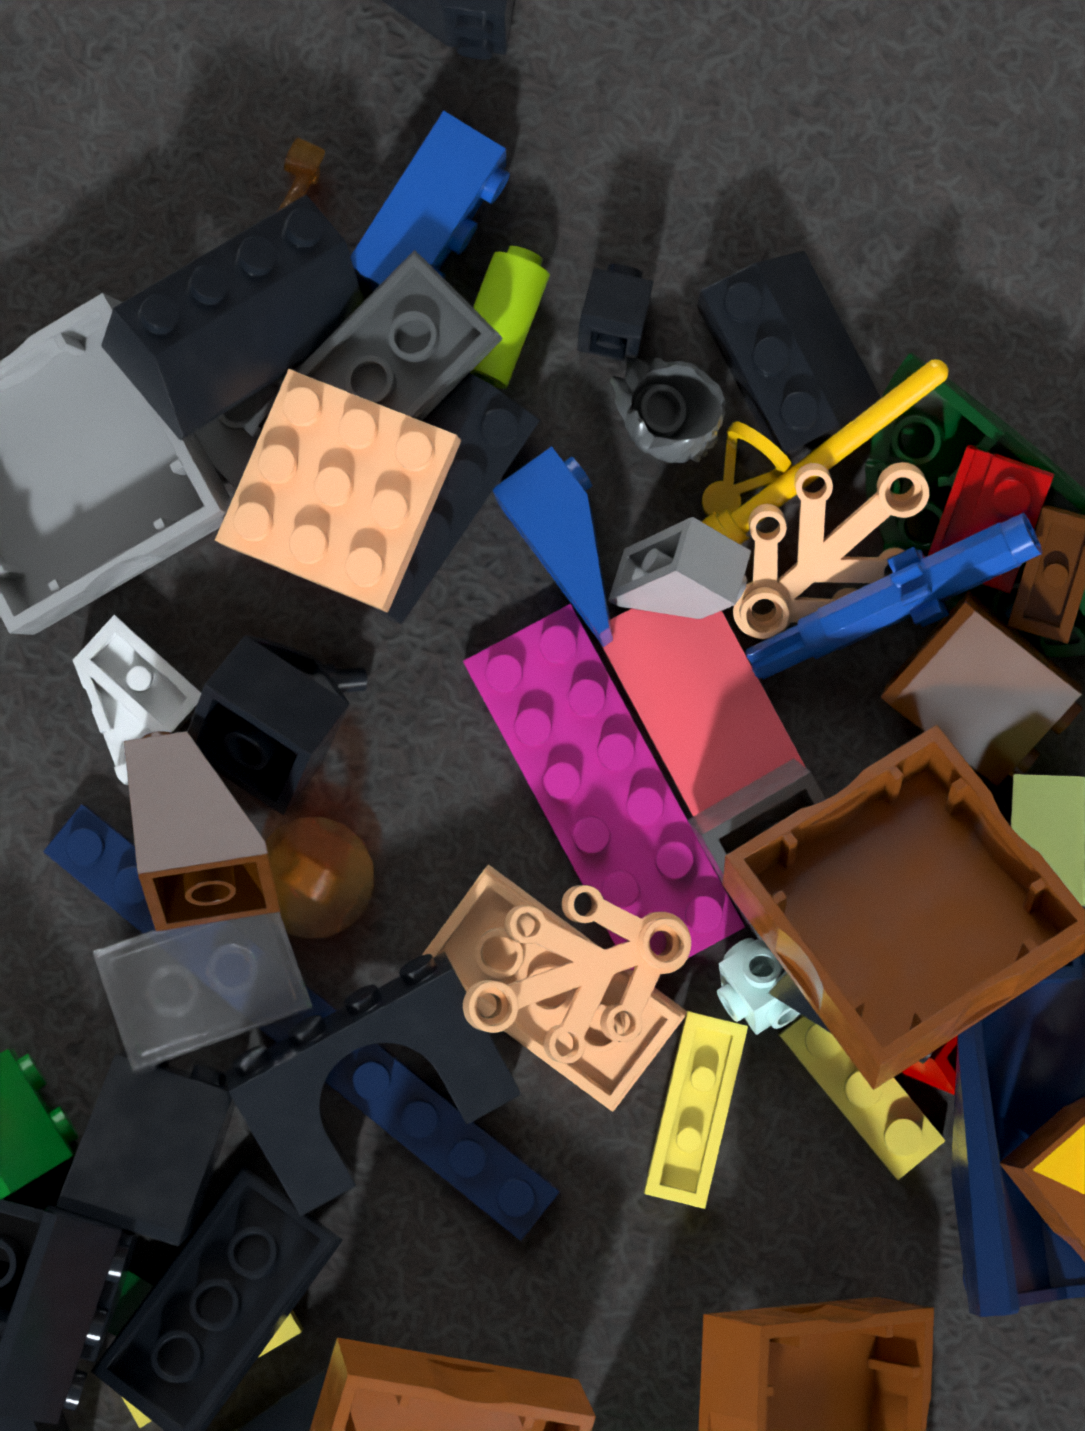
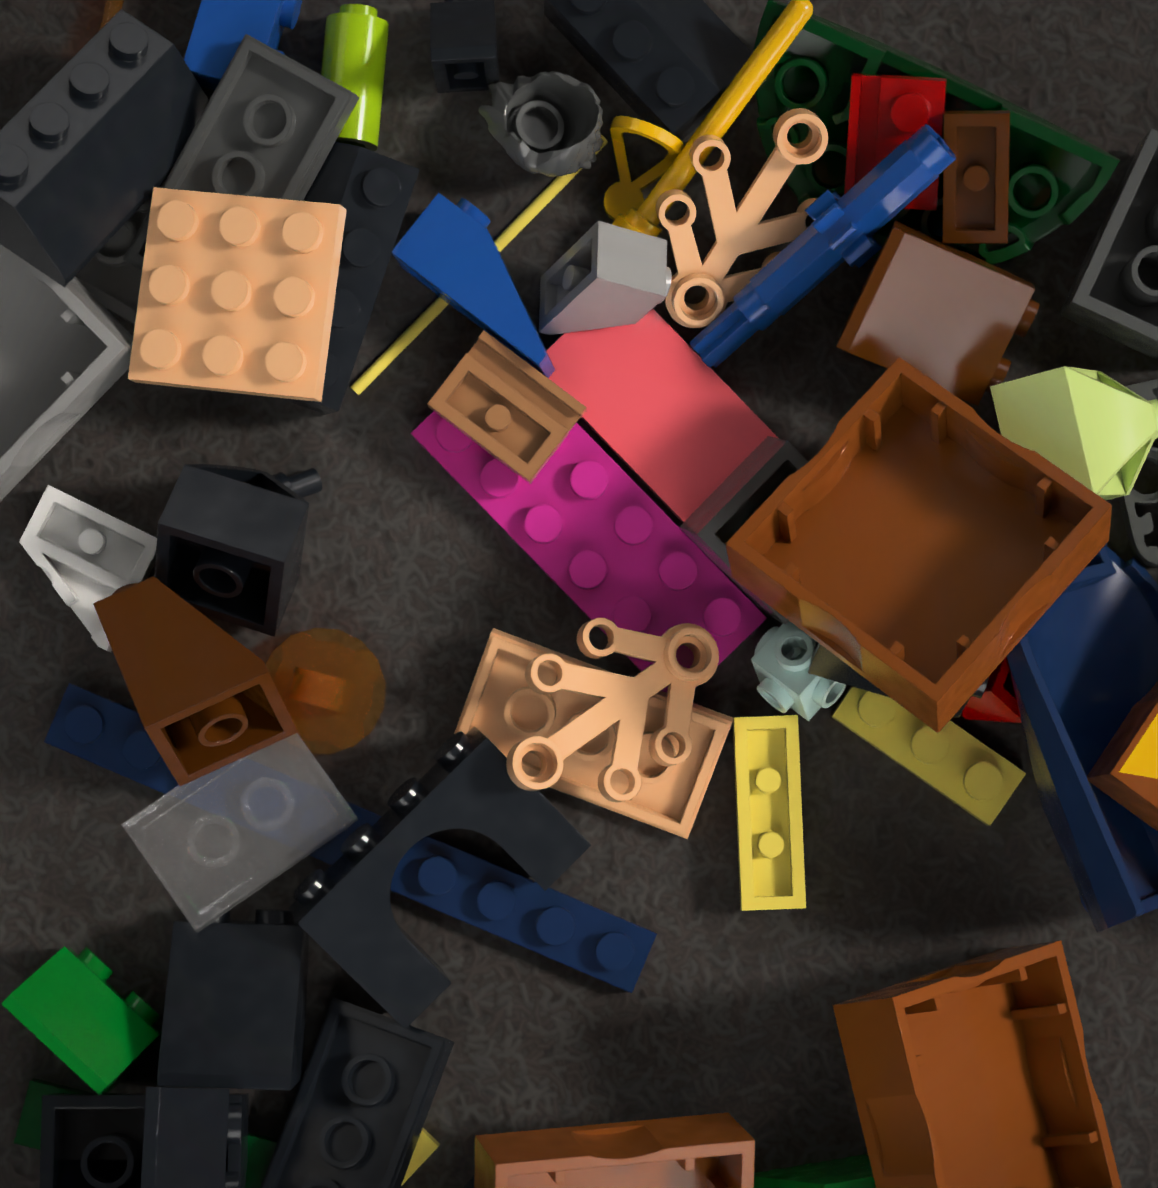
camera: 15 degrees left, 0 degrees up
(523, 548) = (439, 304): none -> light yellow axle
(558, 664) = (507, 407): none -> medium nougat plate

